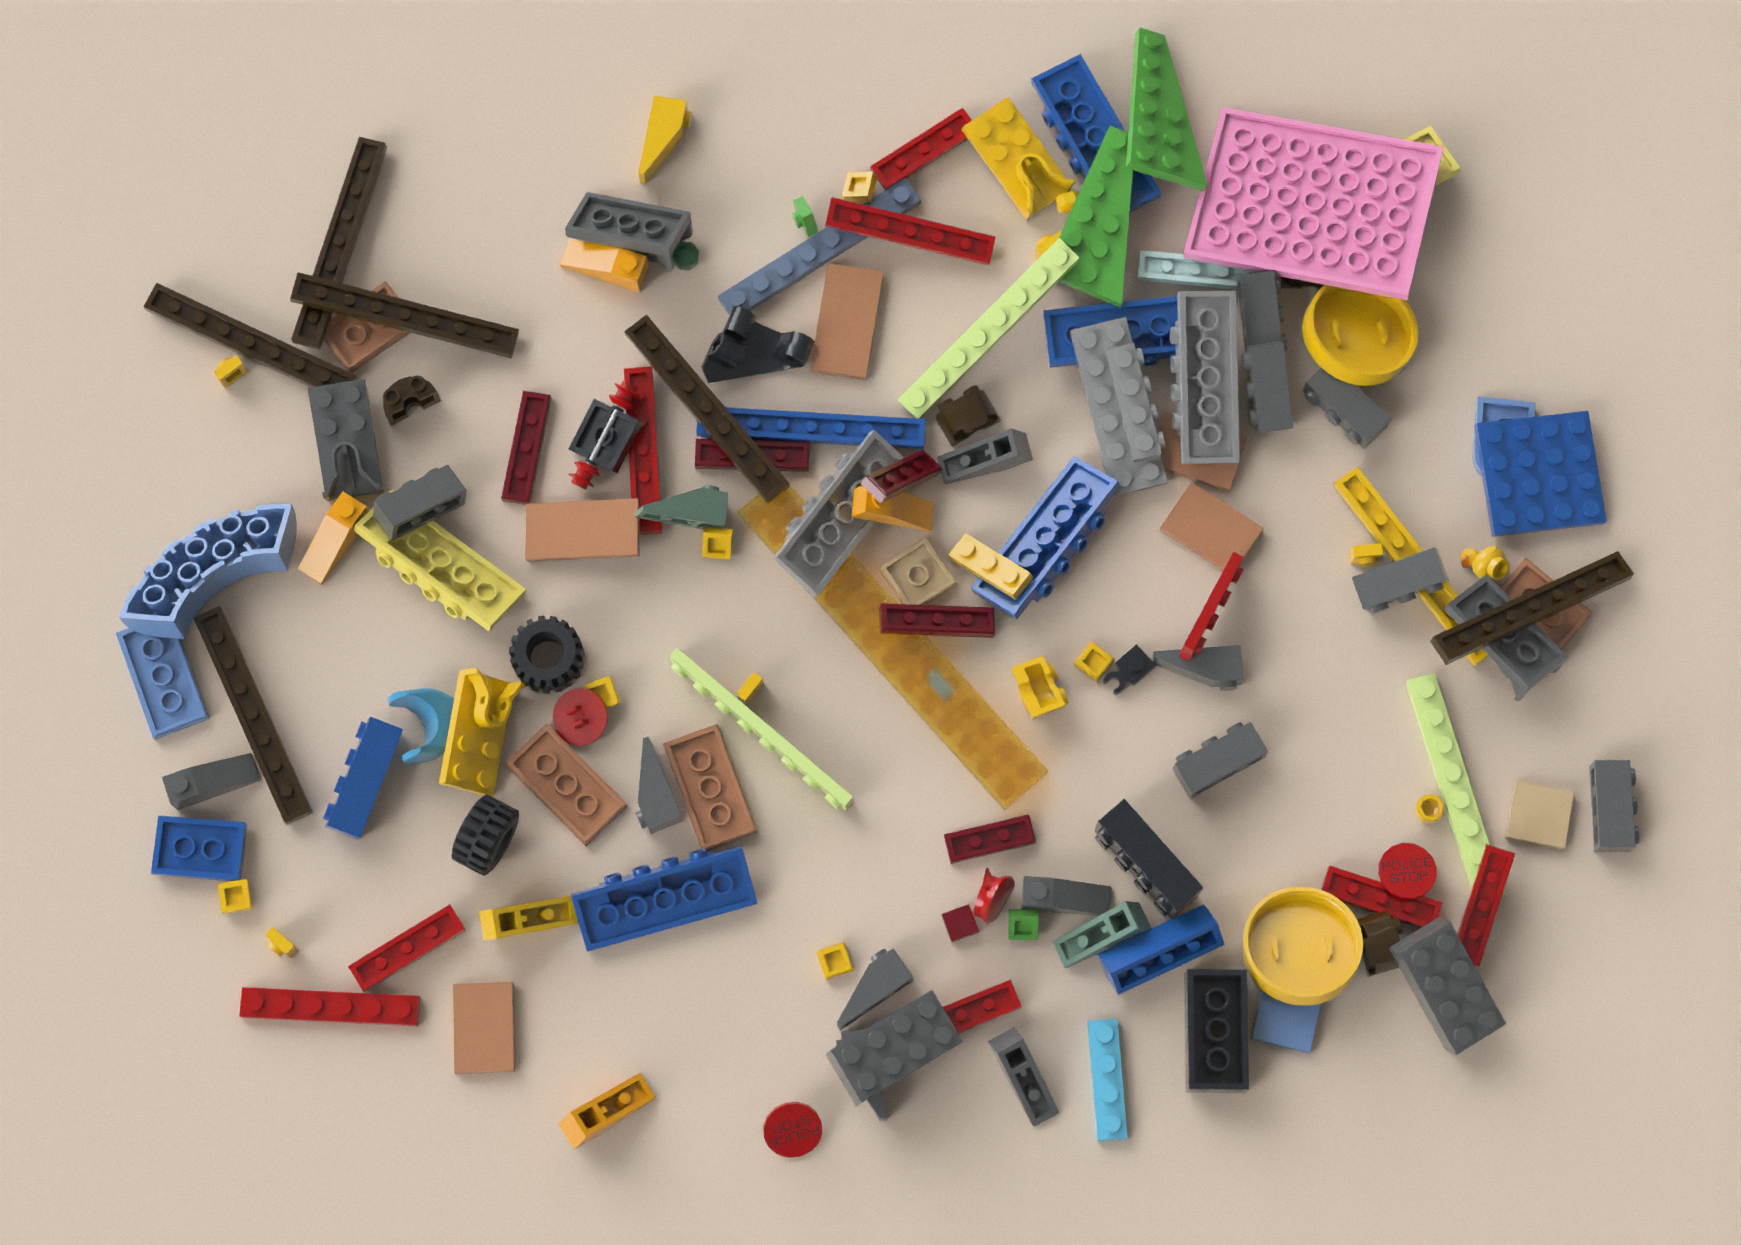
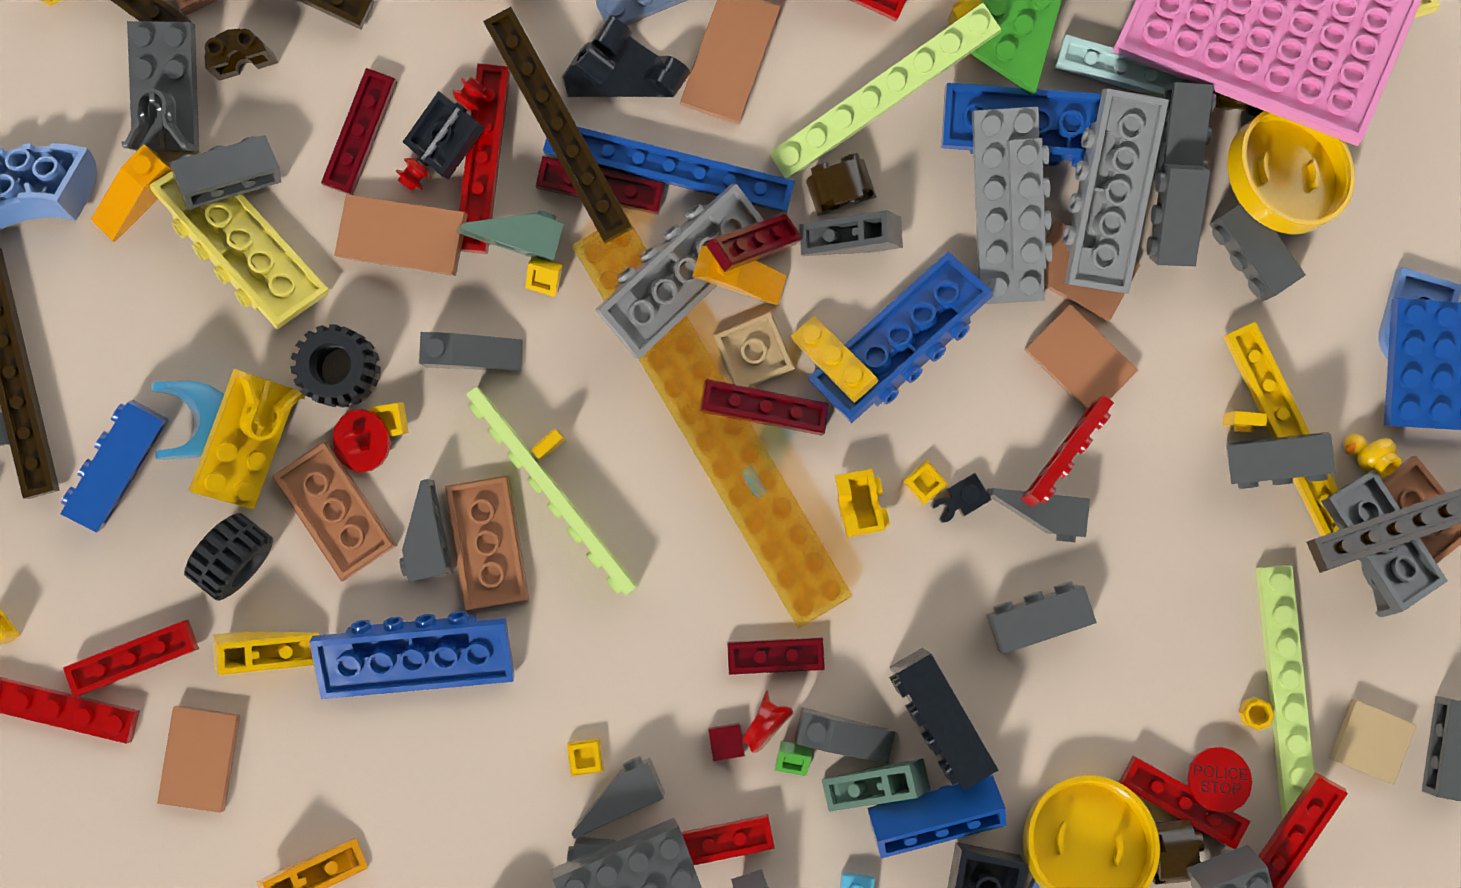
camera: 10 degrees right, 10 degrees up
(663, 621) = (469, 352): none -> dark grey slope

